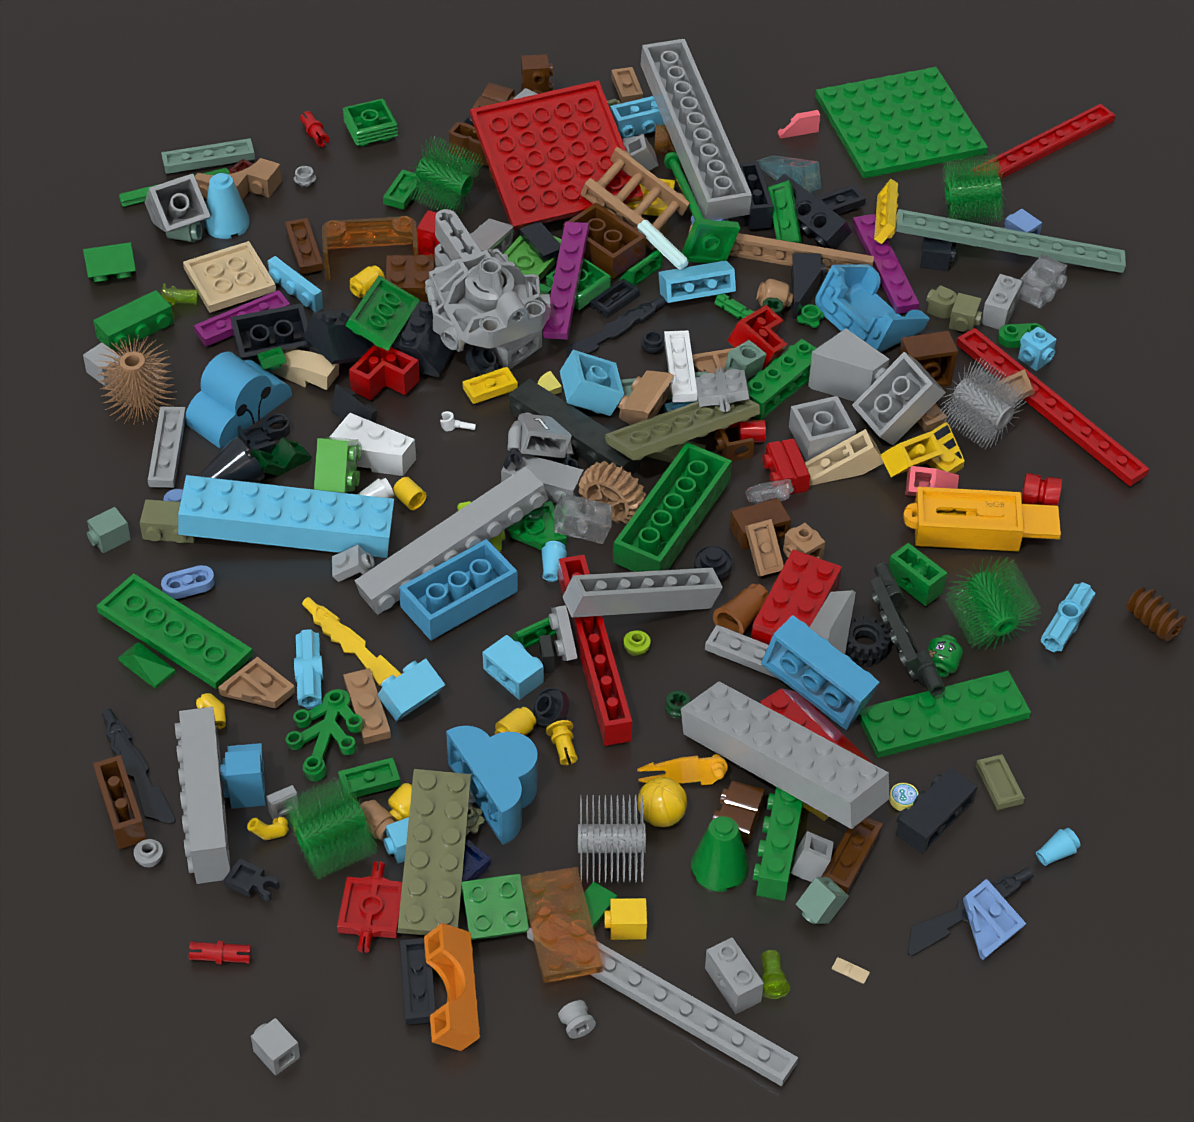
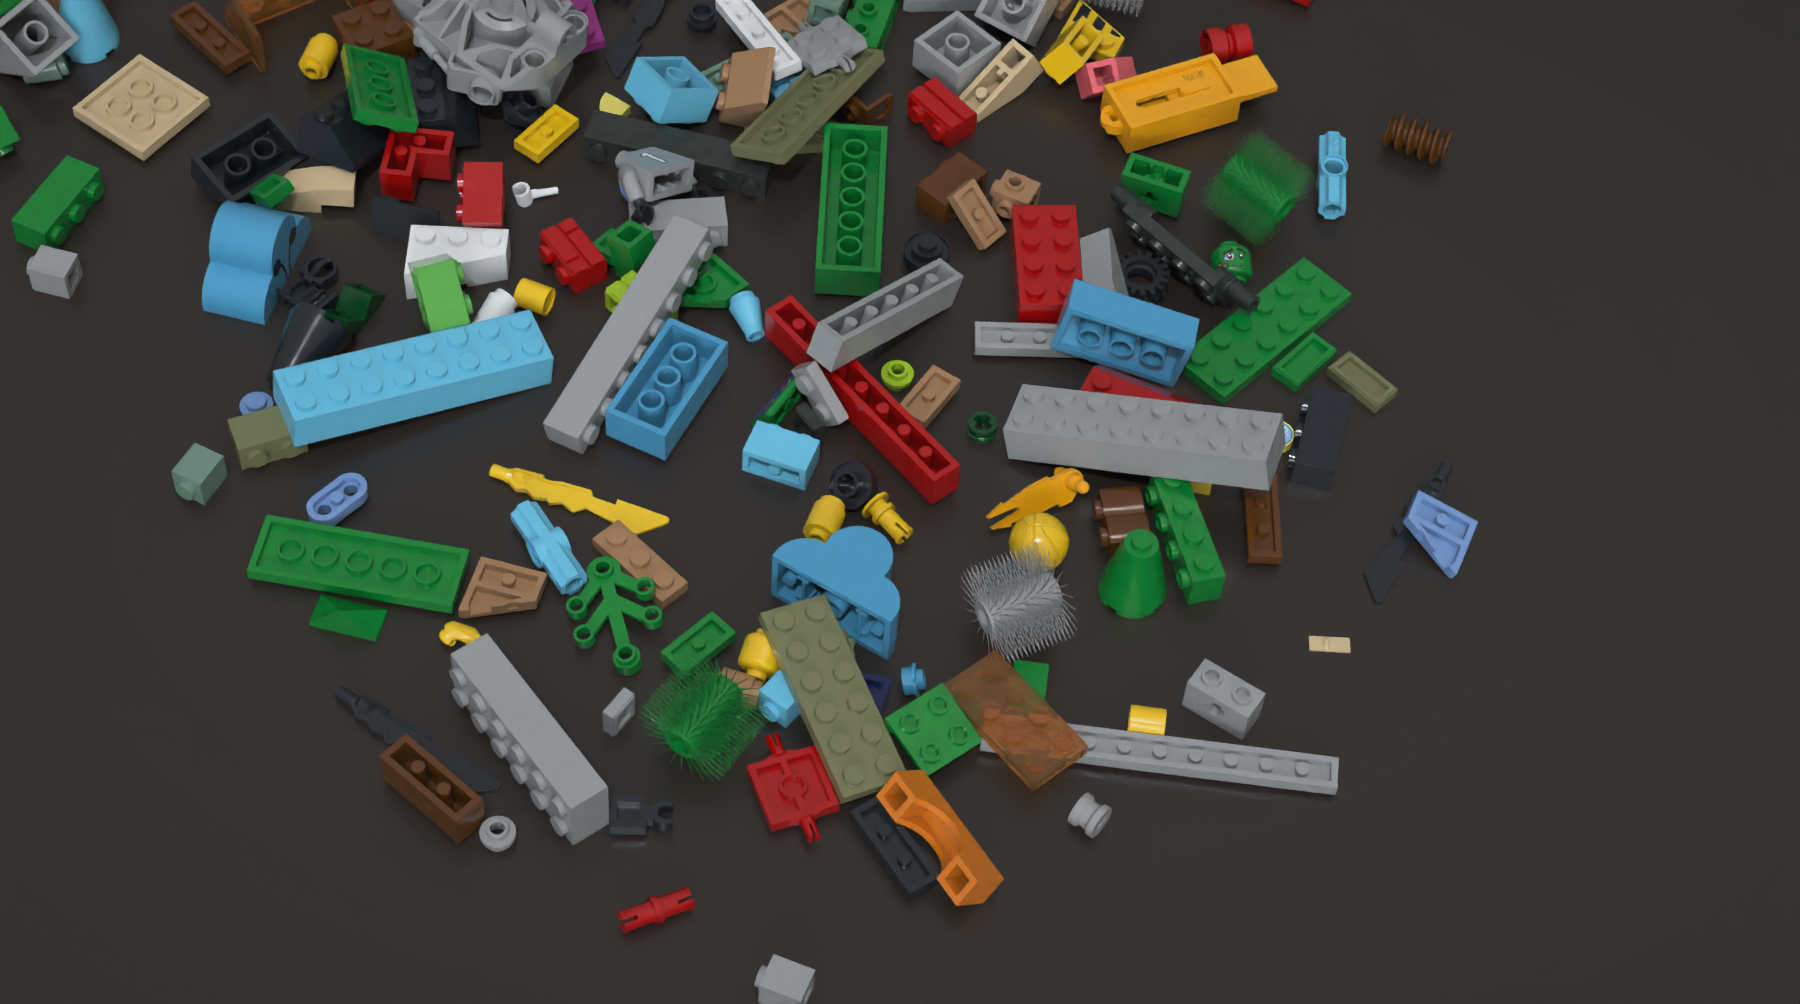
camera: 30 degrees left, 5 degrees up
(135, 379) = (118, 276): medium nougat piece -> none
(167, 447) = (203, 346): light grey plate -> none
(179, 295) = (94, 152): clear neon green pin -> none
(219, 327) = (175, 169): magenta plate -> none
(244, 775) = (563, 692): dark azure brick -> none
(268, 832) = (621, 753): yellow arm -> none
(295, 284) = (233, 88): medium azure plate -> none
(351, 562) = (519, 405): light grey bracket -> none
(410, 689) = (685, 525): medium azure brick -> none
(411, 410) = (482, 195): none -> red brick
(454, 474) = (572, 255): none -> red brick
(488, 476) = (626, 246): none -> green brick
(507, 864) = (913, 680): none -> dark azure plate
(582, 518) = (756, 254): clear brick -> none
(613, 487) = (773, 211): medium nougat gear -> none
(627, 919) = (1076, 685): yellow brick -> none
(648, 667) = (930, 395): none -> medium nougat plate
(665, 967) = (1147, 719): none -> yellow beam
(742, 609) = (992, 293): dark orange plant -> none
(752, 429) = (879, 84): red beam -> none
(770, 490) = (936, 149): clear plate -> none
(773, 978) = (1257, 677): clear neon green pin -> none
(811, 857) = (1232, 537): light grey brick -> none
(821, 900) = (1266, 582): sand green brick -> none
(961, 749) = (1304, 362): none -> green tile
(1059, 846) = (1462, 426): medium azure cone -> none

